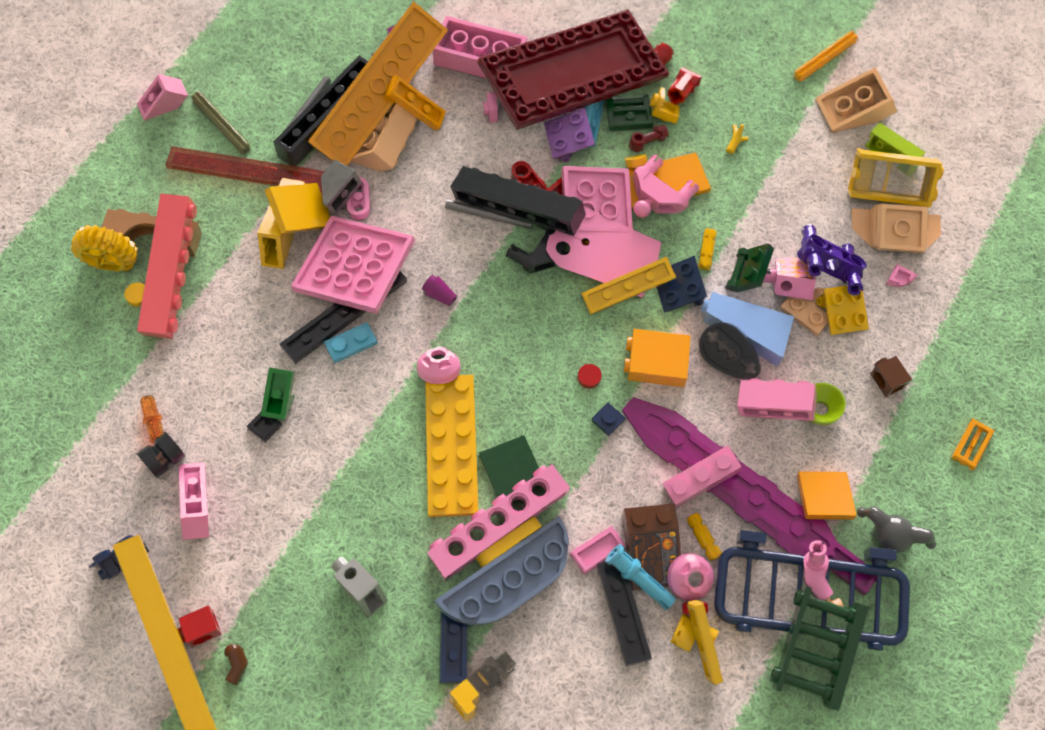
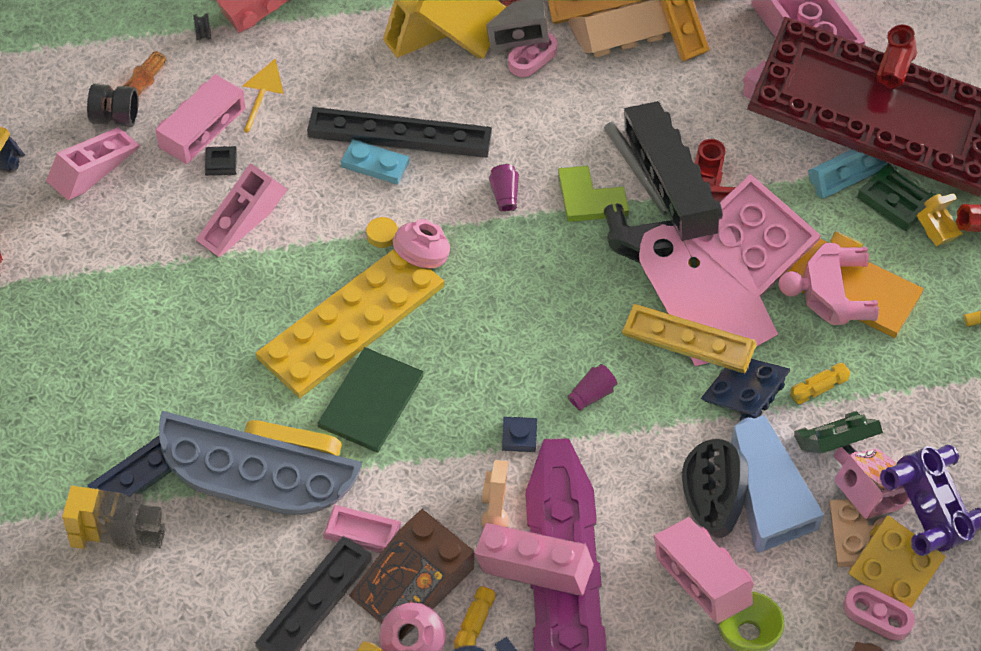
camera: 50 degrees right, 10 degrees down
(148, 355) = (202, 26): none -> black bush
(222, 413) = (200, 119): none -> bright pink brick
(227, 352) = (265, 80): none -> yellow piece
(277, 393) = (257, 140): green slope -> none
(318, 445) = (242, 210): none -> bright pink slope
(353, 264) = (455, 98): bright pink plate -> none
(359, 585) = (122, 332): light grey torso -> none
(405, 379) = (381, 232): none -> yellow tile
(485, 259) = (583, 201): none -> lime tile
(545, 477) = (382, 437): bright pink brick -> none
(562, 33) = (897, 57): none -> red piece
(569, 134) = (801, 161): medium lavender hinge -> none
(589, 376) = (550, 382): red tile -> none
(613, 357) = (593, 386): none -> magenta cone
(632, 570) = (362, 567): medium azure pin -> none
(639, 139) = (871, 229): dark red bar -> none
(646, 461) = (494, 494): none -> light nougat plate
(658, 357) = (636, 425): light orange brick -> none
(860, 340) = (879, 610): none -> bright pink plate

